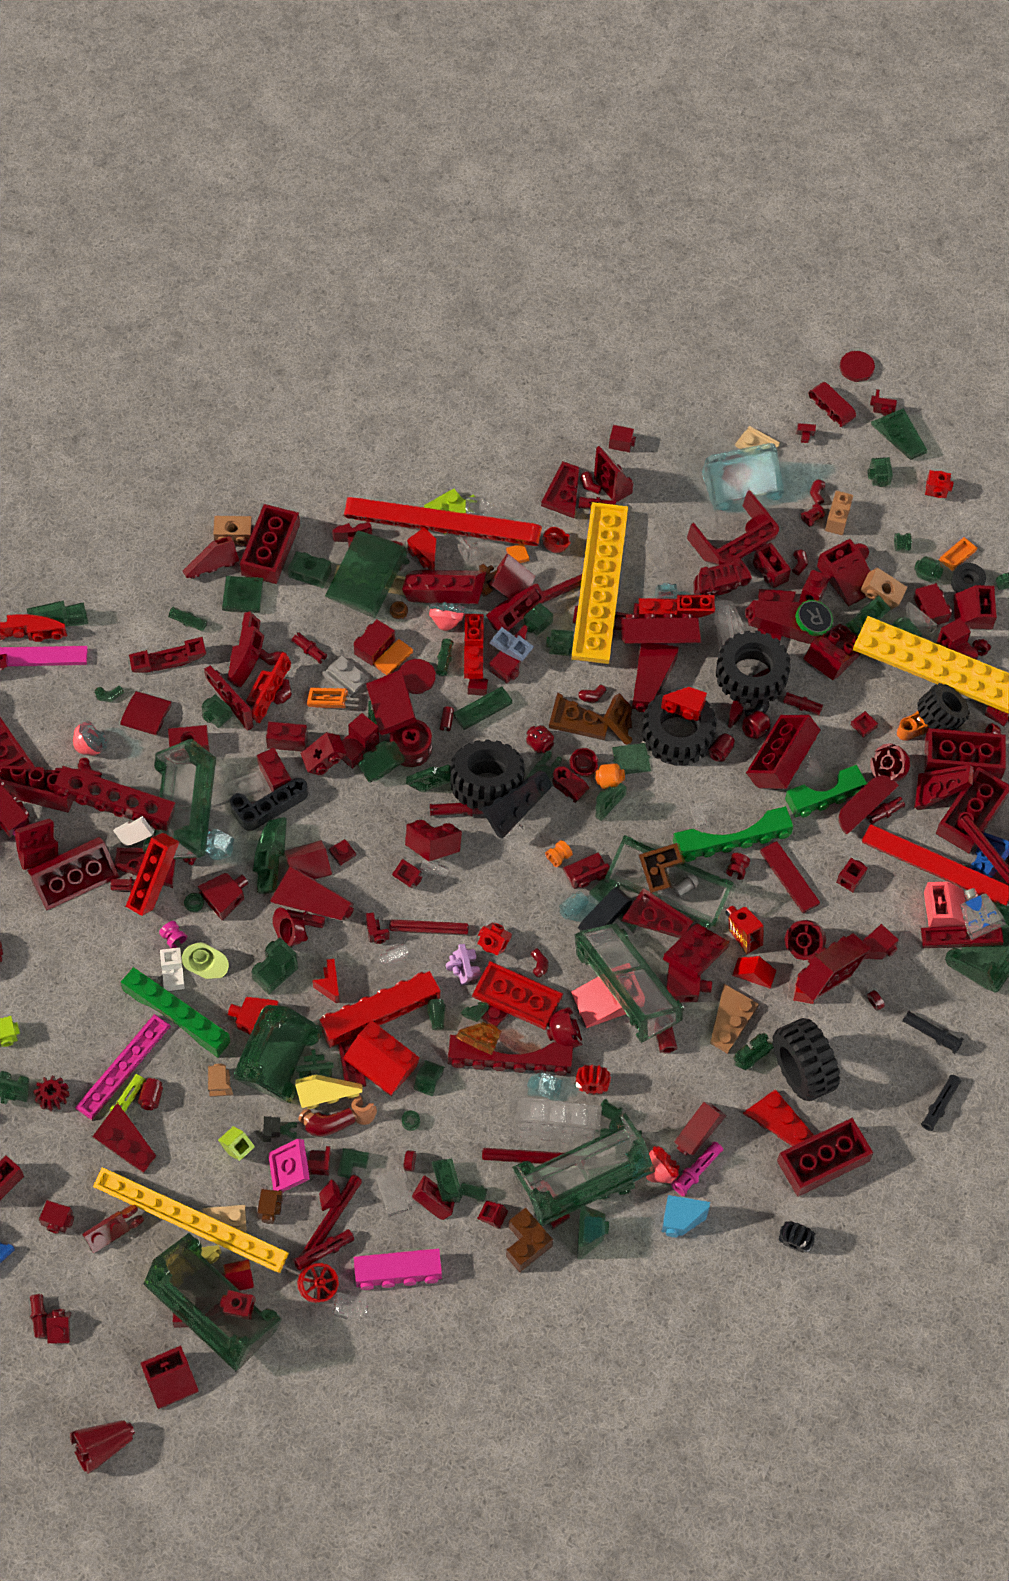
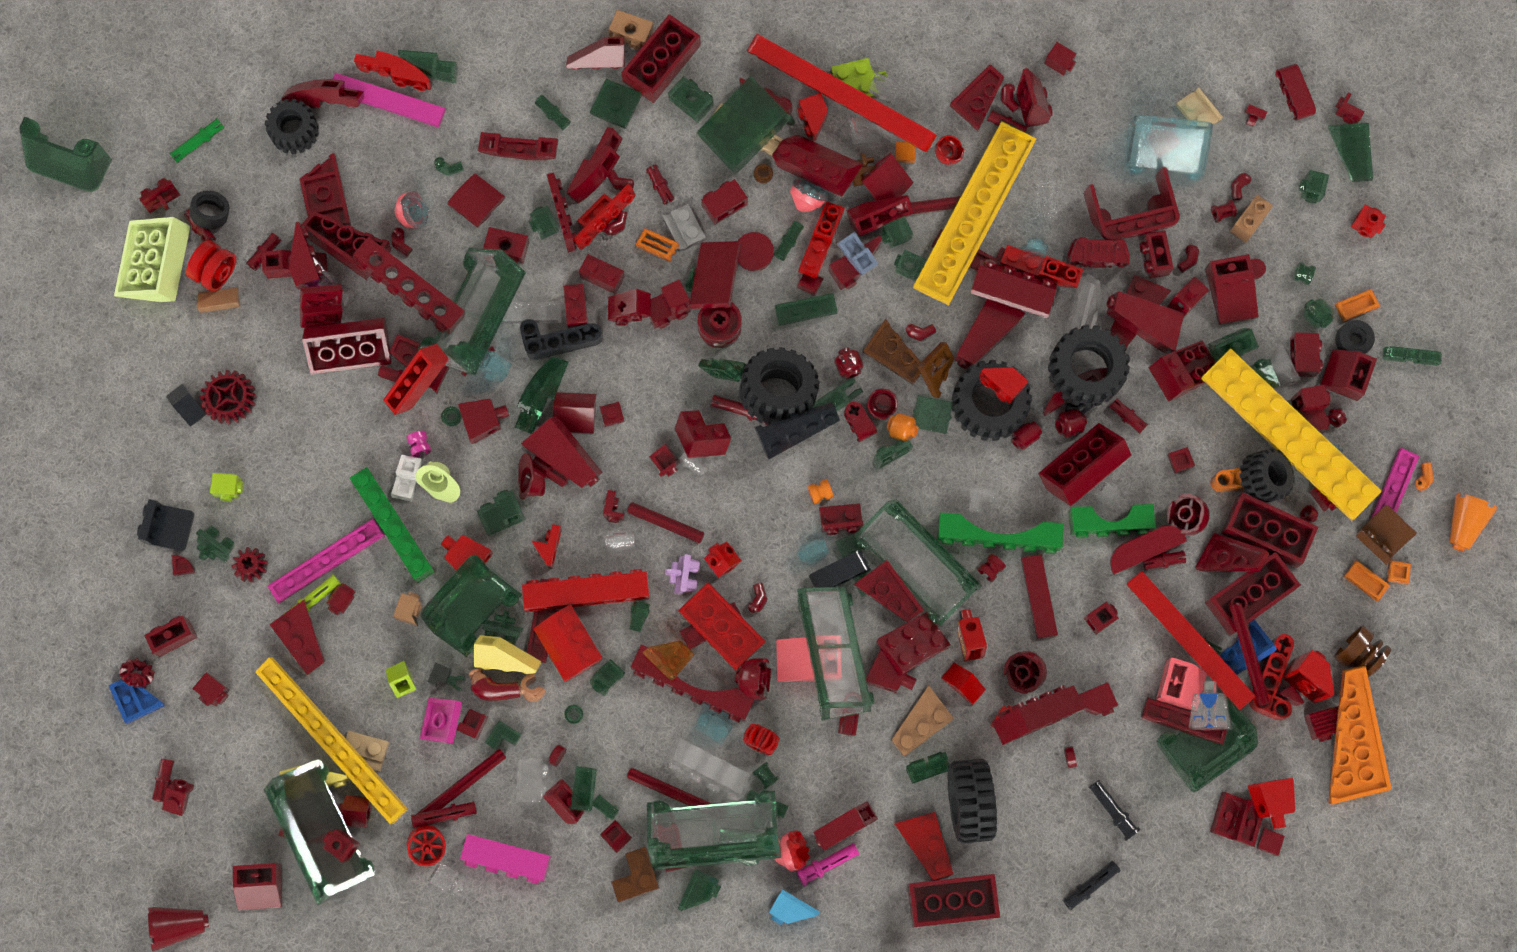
camera: 20 degrees right, 15 degrees up
(112, 1228) = (258, 719): dark red hinge -> none
(133, 831) = (417, 325): white slope -> none
(269, 1205) = (409, 752): reddish brown brick -> none
(330, 1195) = (469, 763): dark red slope -> none
(342, 532) = (740, 70): dark red slope -> none
(381, 761) = (681, 335): clear green brick -> none
(393, 657) = (738, 223): orange tile -> none
(446, 719) = (766, 308): dark red piece -> none
(475, 1012) = (676, 627): clear green tile -> none
(656, 864) = (907, 543): reddish brown brick -> none
(686, 885) = (930, 570): light grey pin -> none
(814, 617) = (1175, 330): tile -> none
(857, 366) = (1340, 56): dark red tile -> none
(878, 580) = (1271, 323): medium nougat brick -> none

